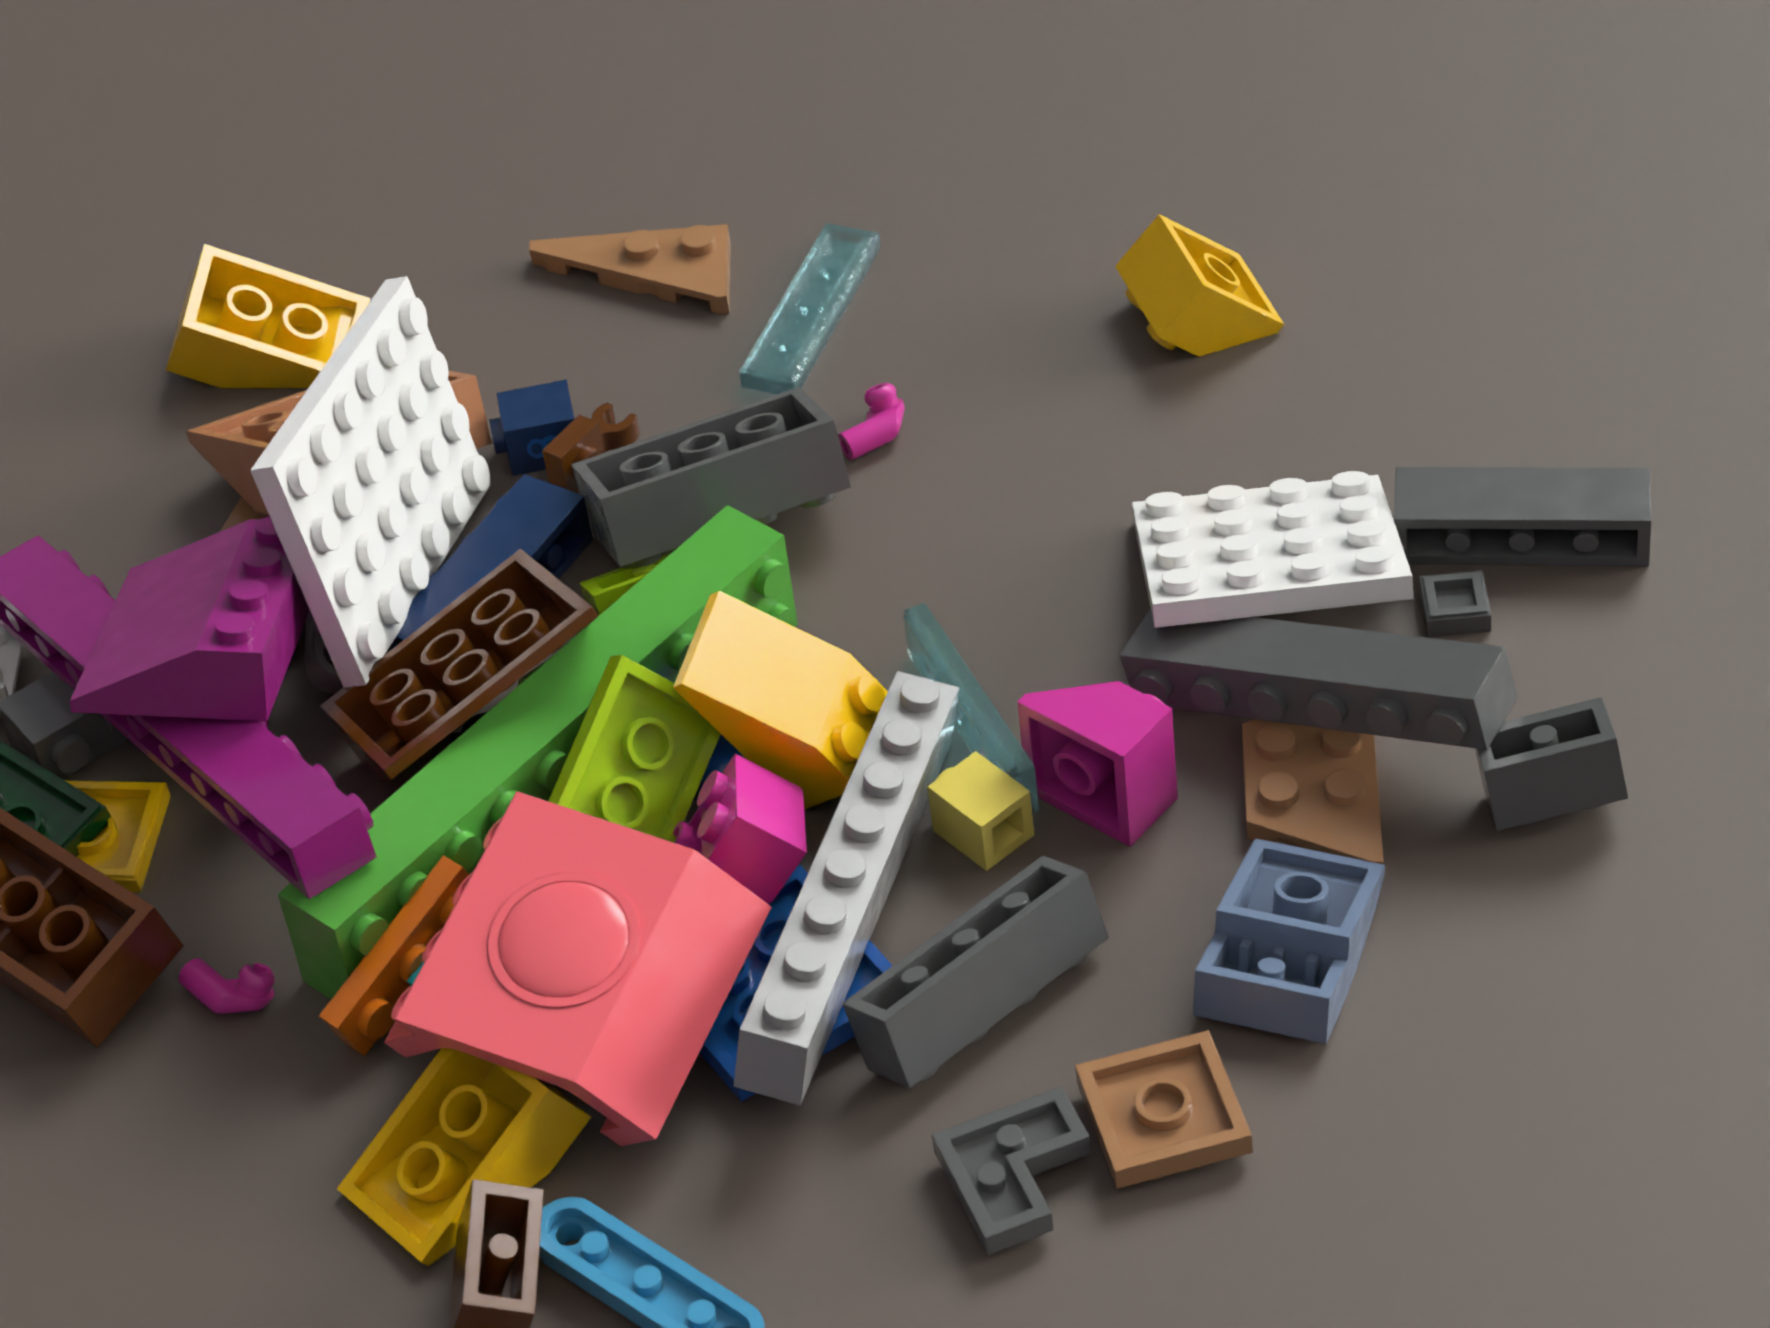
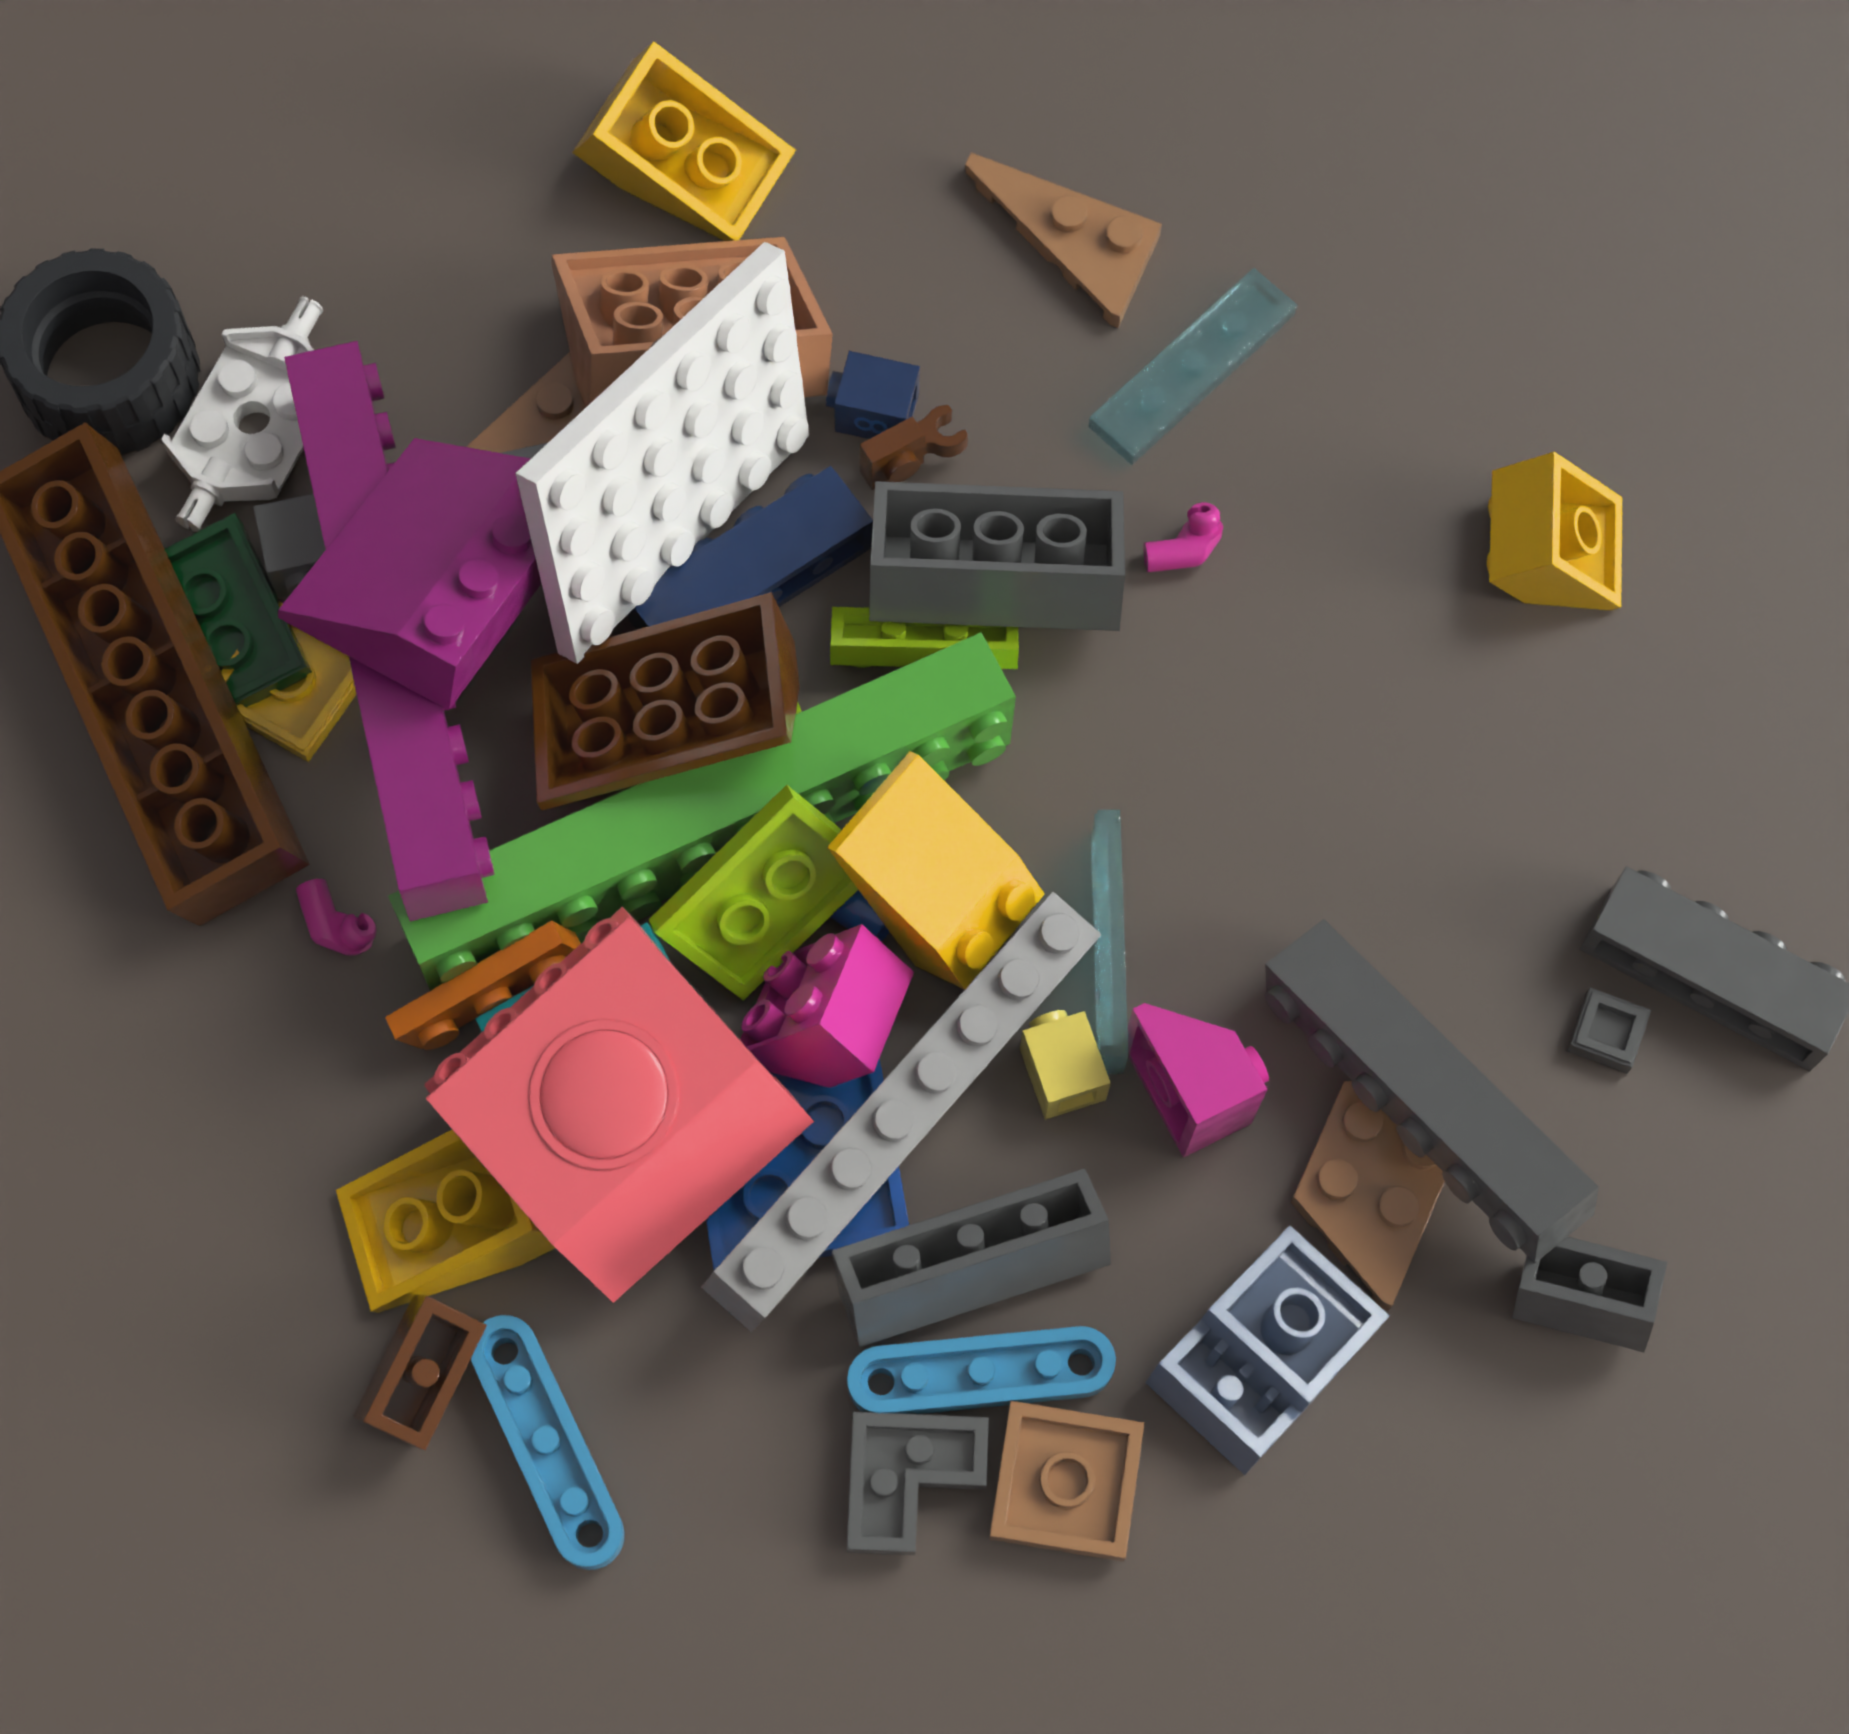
camera: 15 degrees right, 25 degrees up
(1036, 1057) = (982, 1371): none -> dark azure plate
(1270, 549) = (1463, 906): white plate -> none

